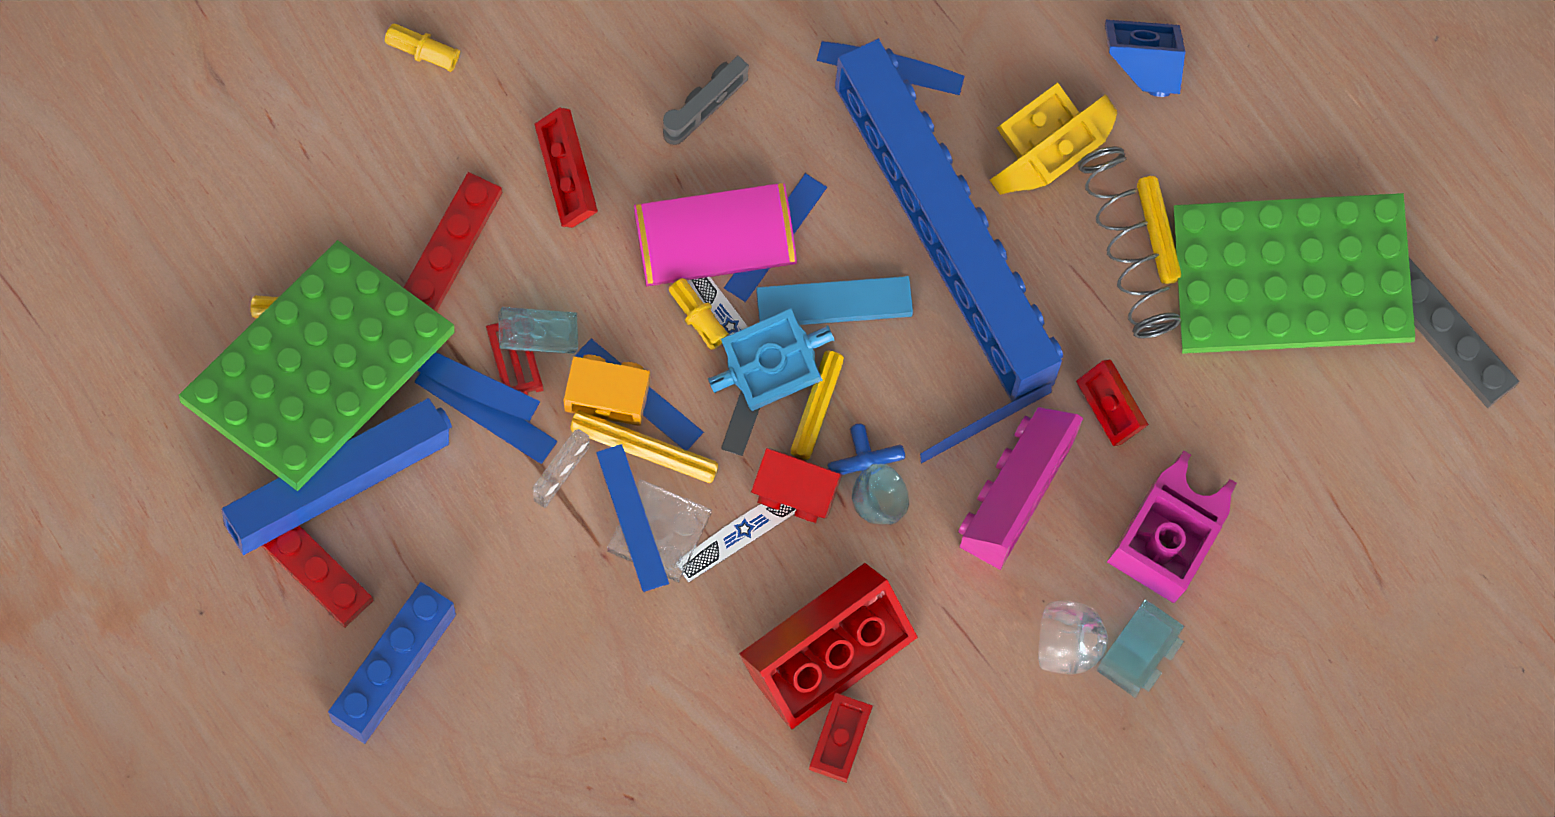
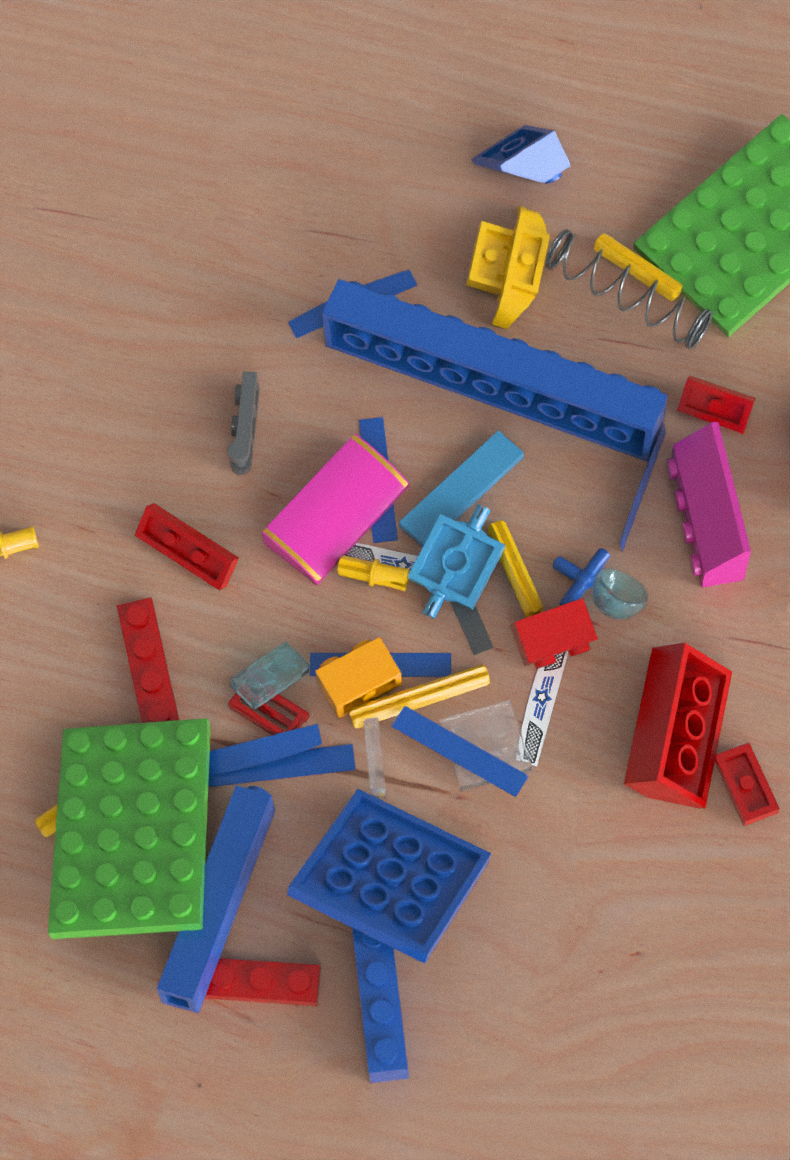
camera: 30 degrees left, 5 degrees down
(483, 570) = (389, 875): none -> blue plate

